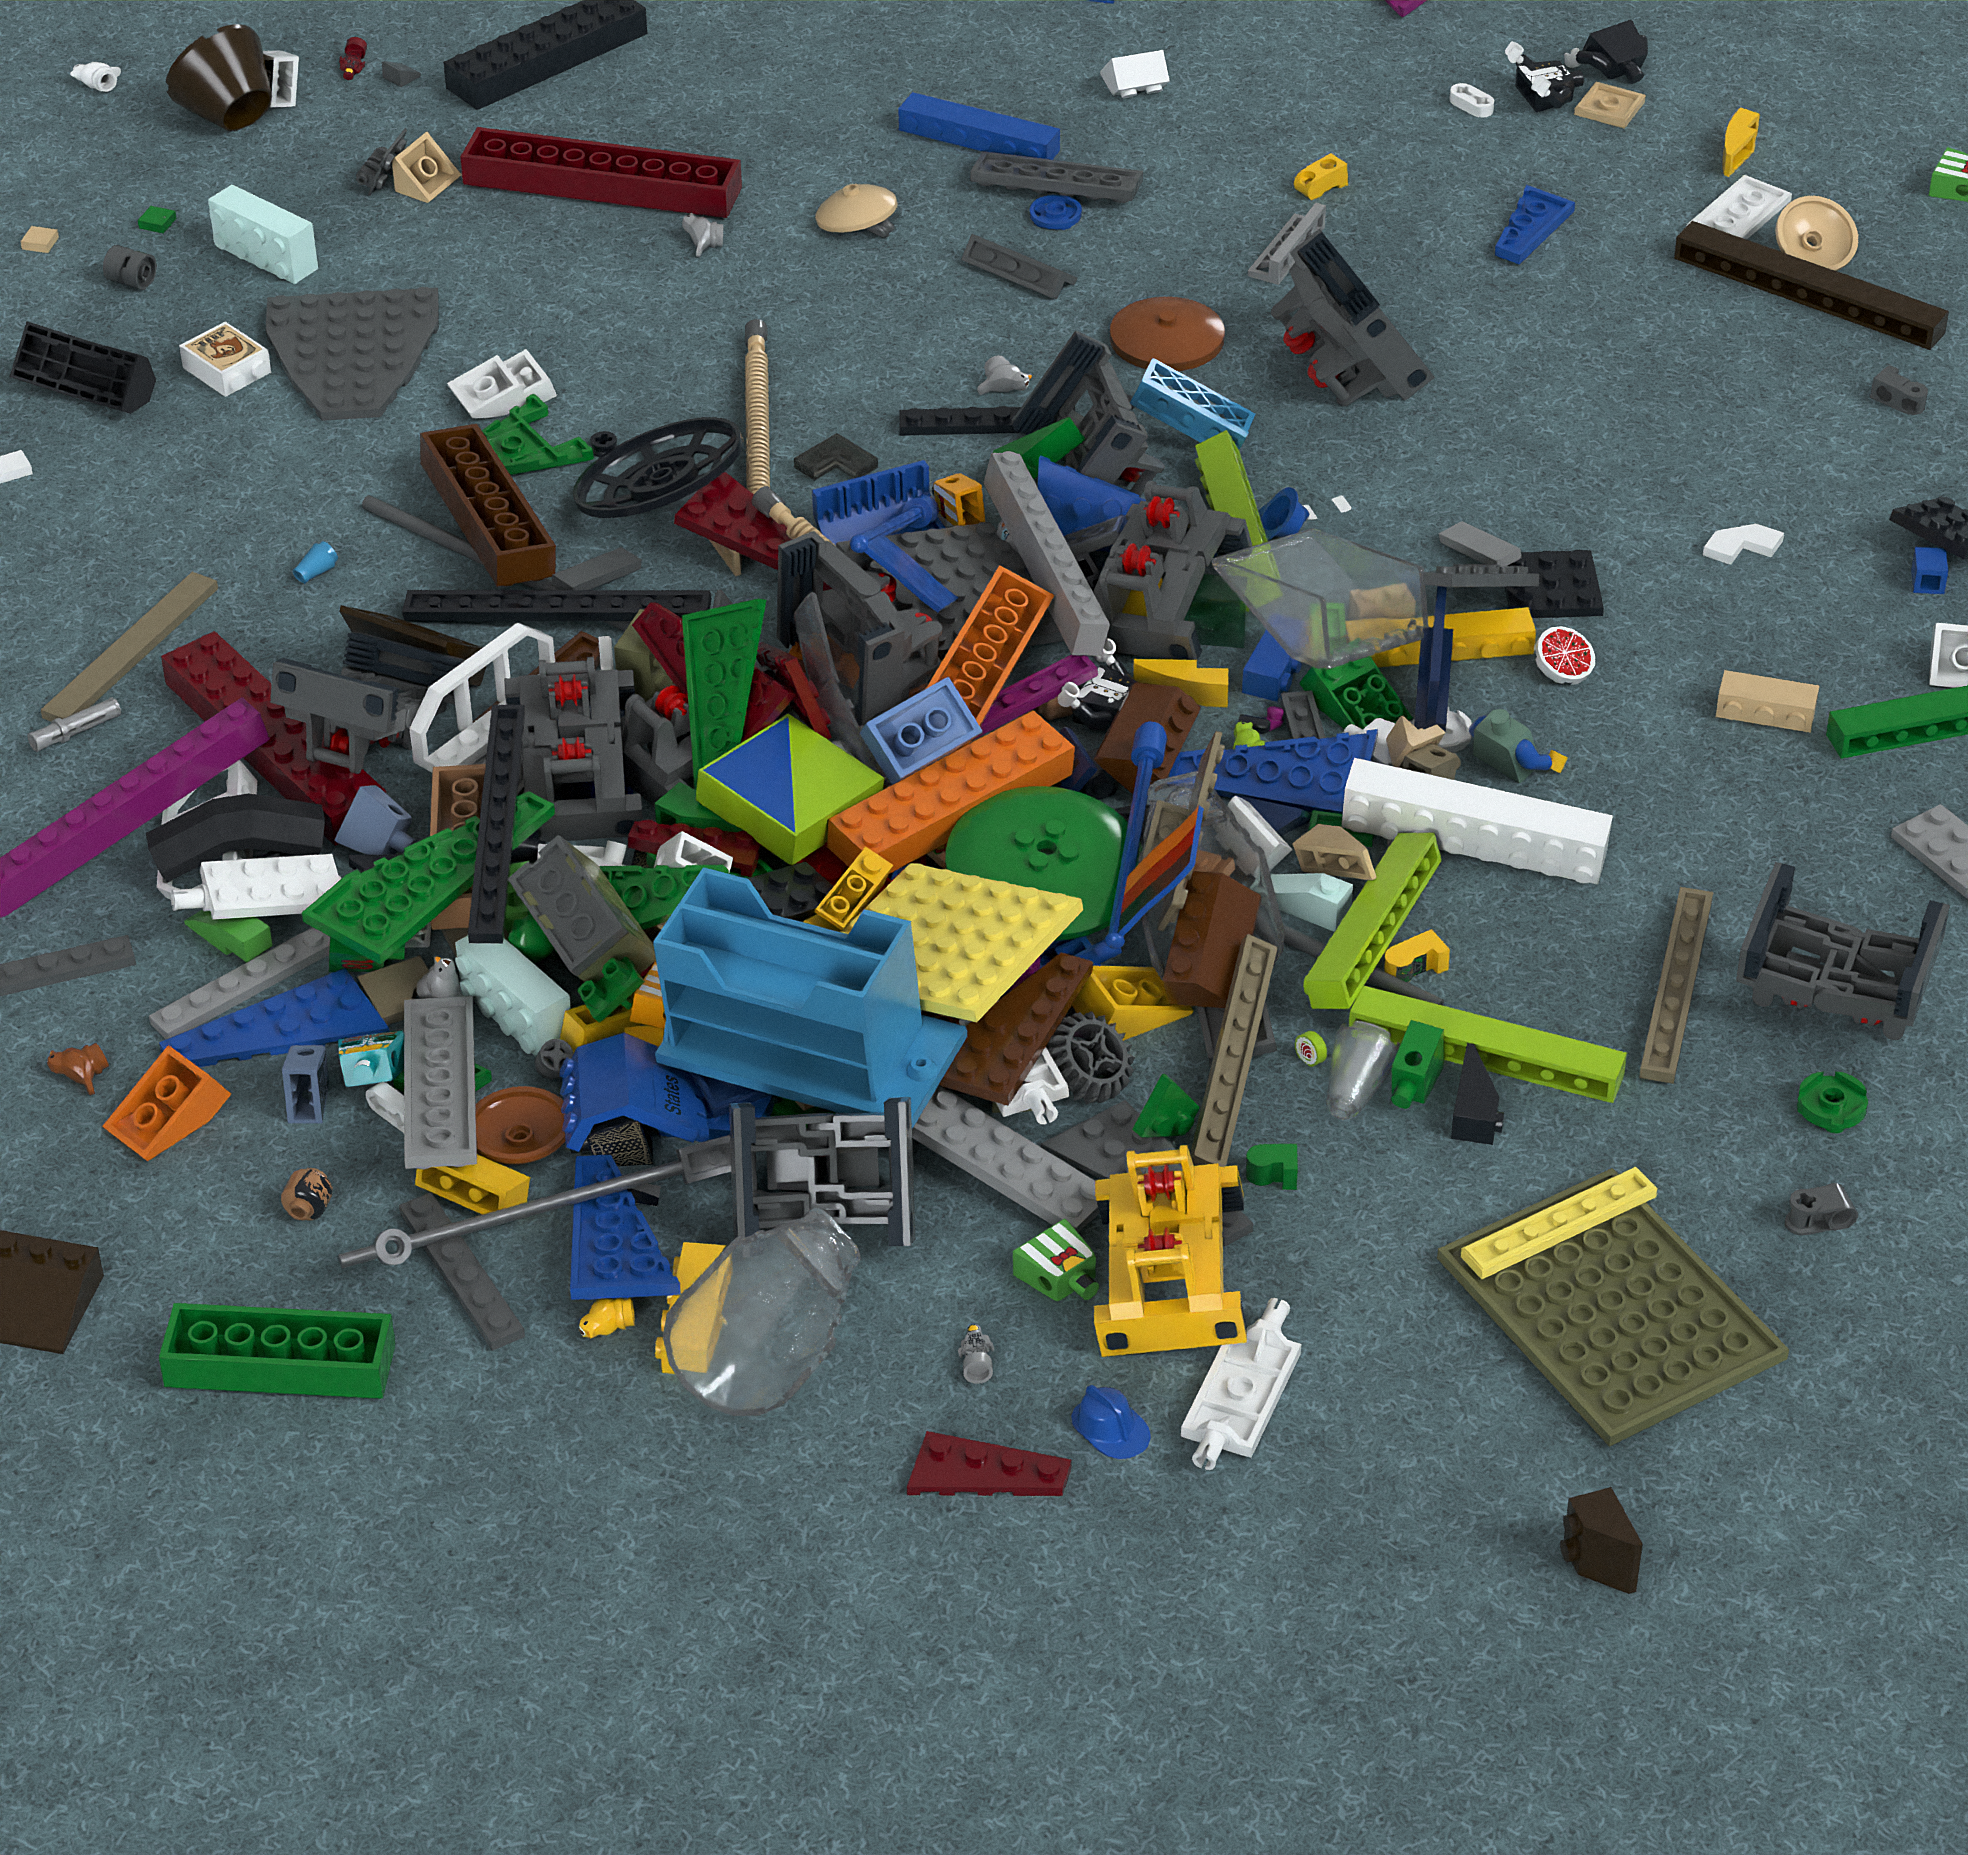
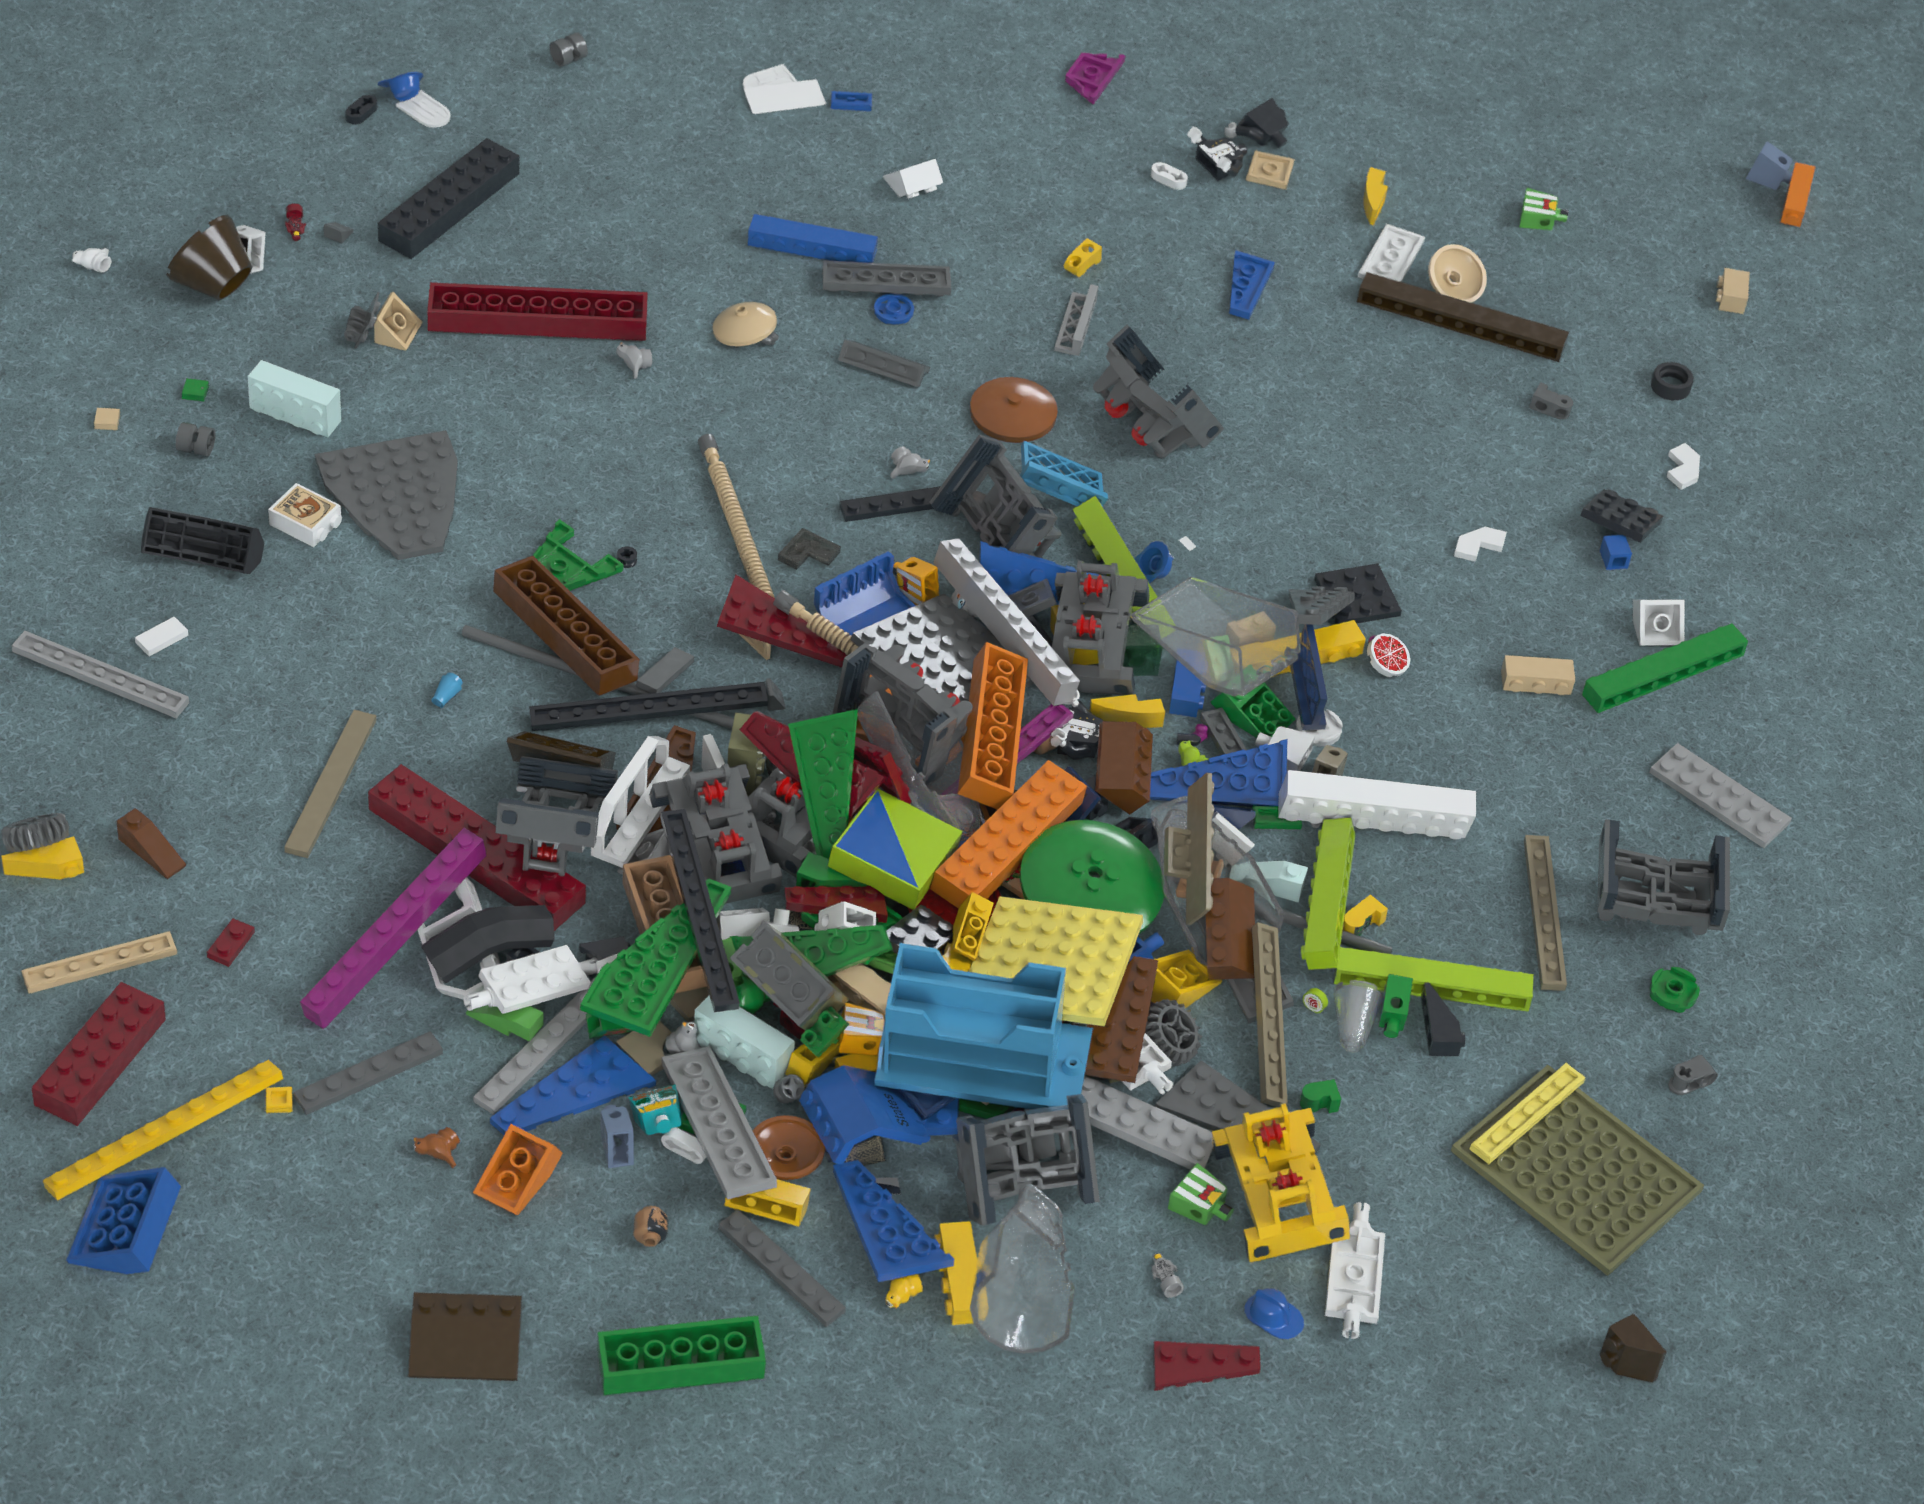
camera: 20 degrees left, 5 degrees up
(62, 729) = (308, 861): light grey pin -> none
(375, 824) = (588, 915): sand blue torso -> none
(501, 385) = (531, 514): white slope -> none
(660, 476) = (688, 583): black dish -> none
(693, 1162) = (924, 1159): flat silver bar -> none
(916, 514) = (893, 595): blue flag -> none
(920, 731) = (981, 793): medium blue slope -> none
(1051, 442) = (963, 527): green slope -> none
(1166, 1111) = (1241, 1069): green wing -> none
(1167, 863) = (1190, 882): flag -> none
(1333, 852) = (1285, 841): tan slope -> none
(1407, 738) = (1310, 745): tan slope -> none
(1479, 545) = (1300, 569): light grey tile -> none
(1510, 746) = (1375, 736): sand green torso -> none

